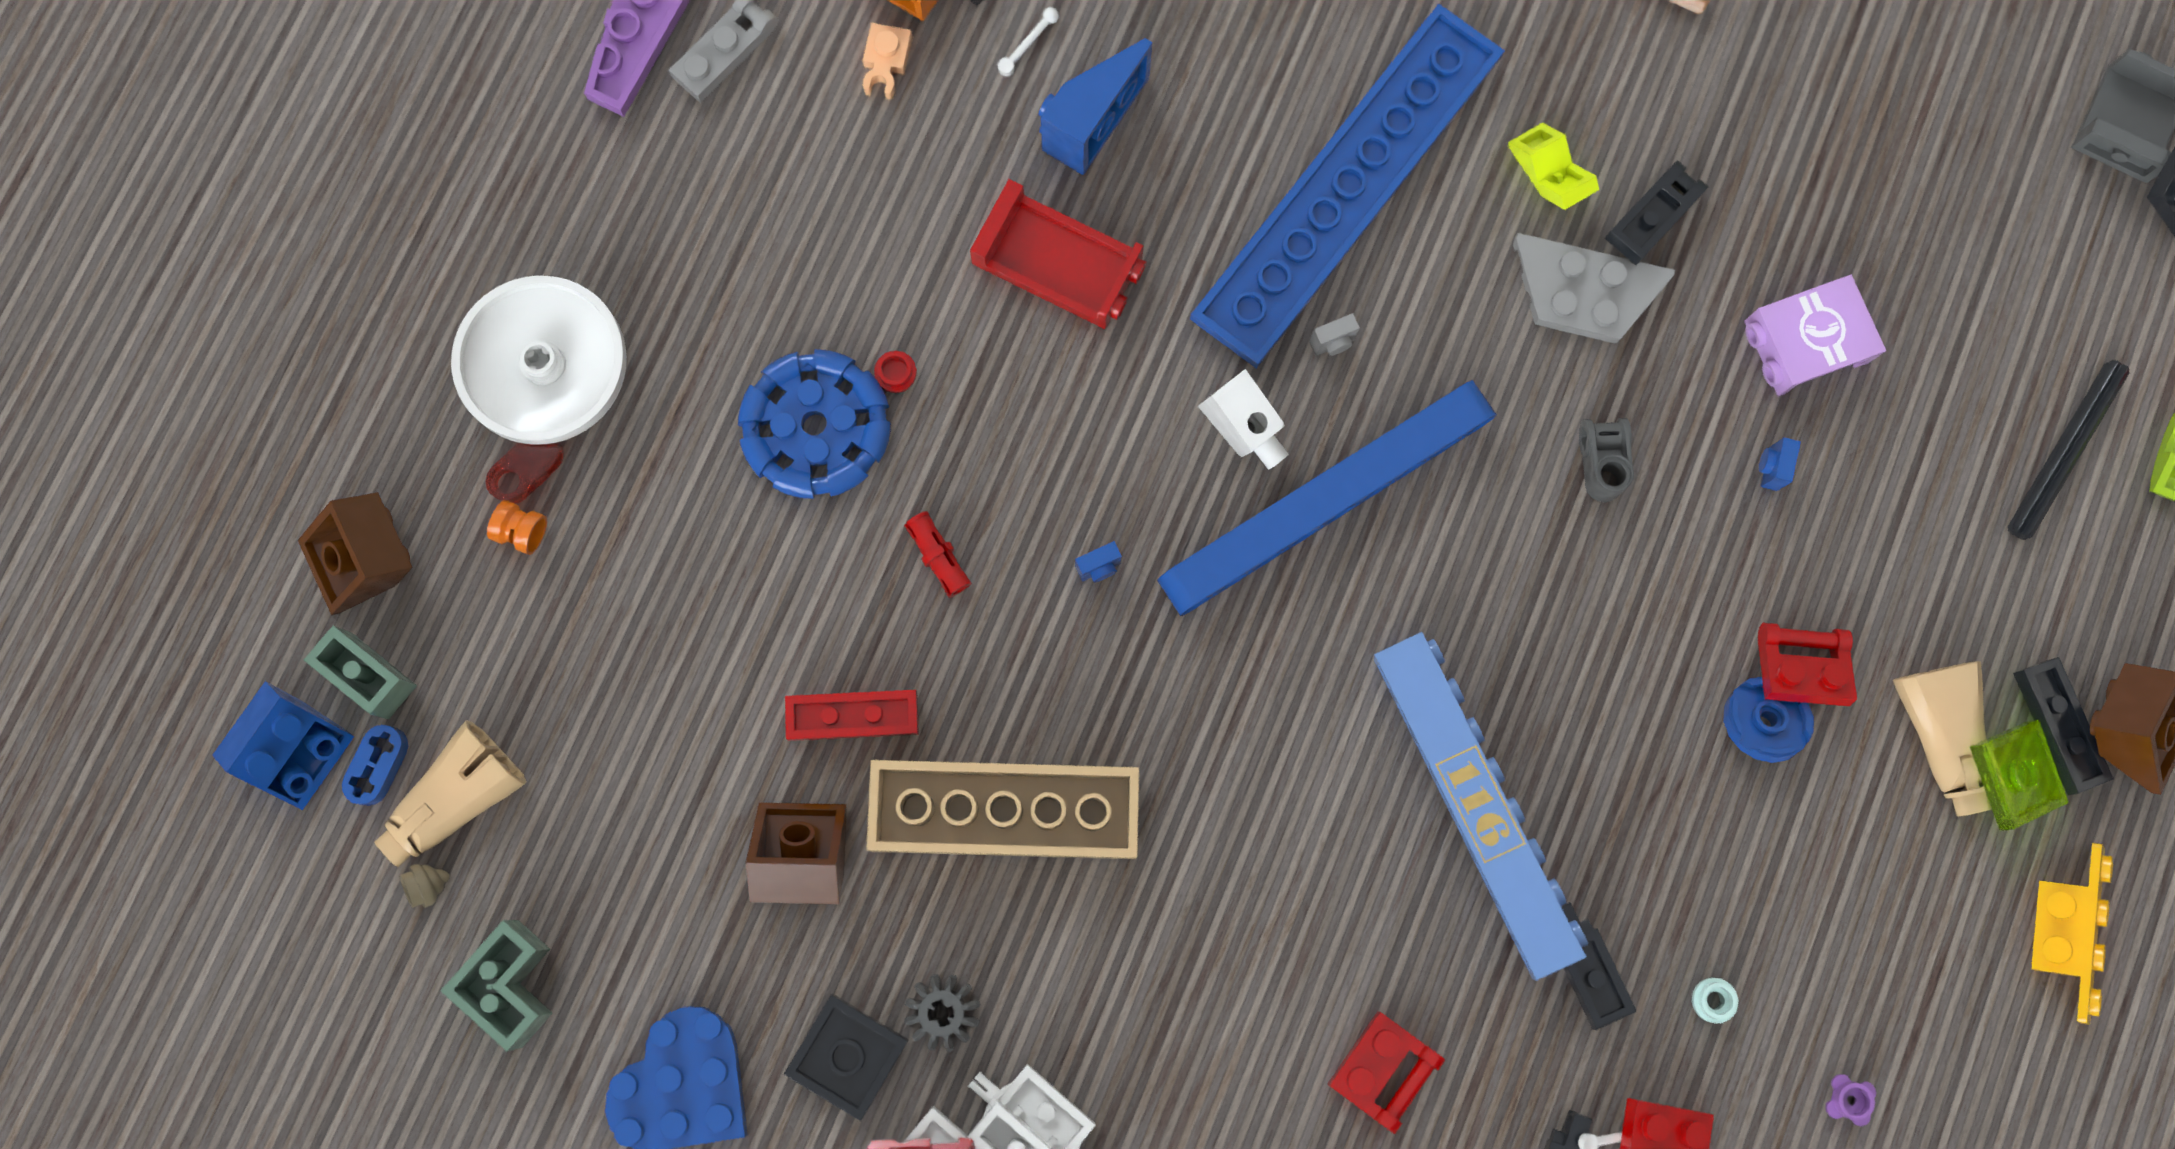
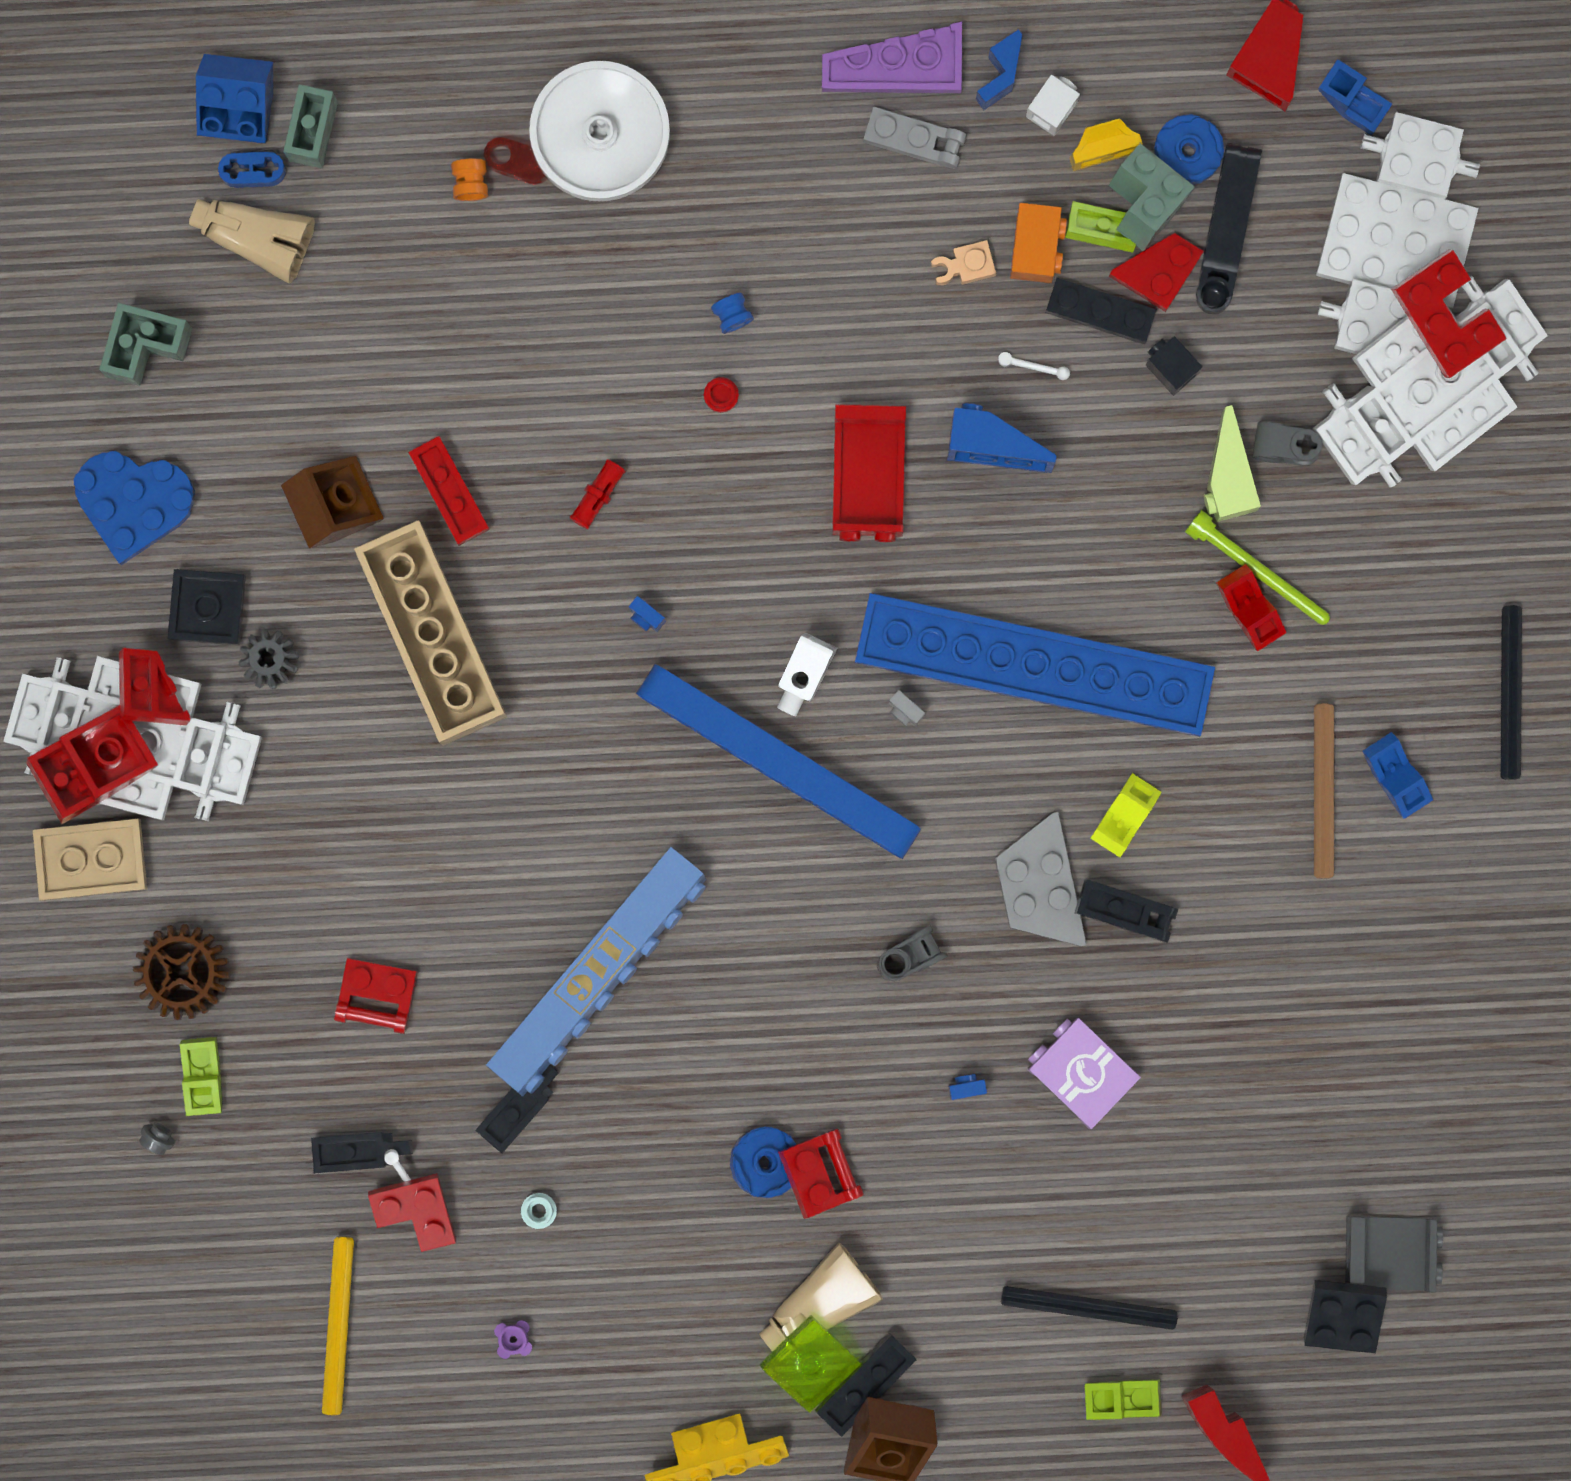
camera: 70 degrees right, 5 degrees up
(354, 551) = (395, 73): reddish brown slope -> none
(423, 884) = (184, 249): dark tan plate -> none
(808, 399) = (648, 334): blue plate -> none
(812, 316) = (732, 313): none -> blue wheel

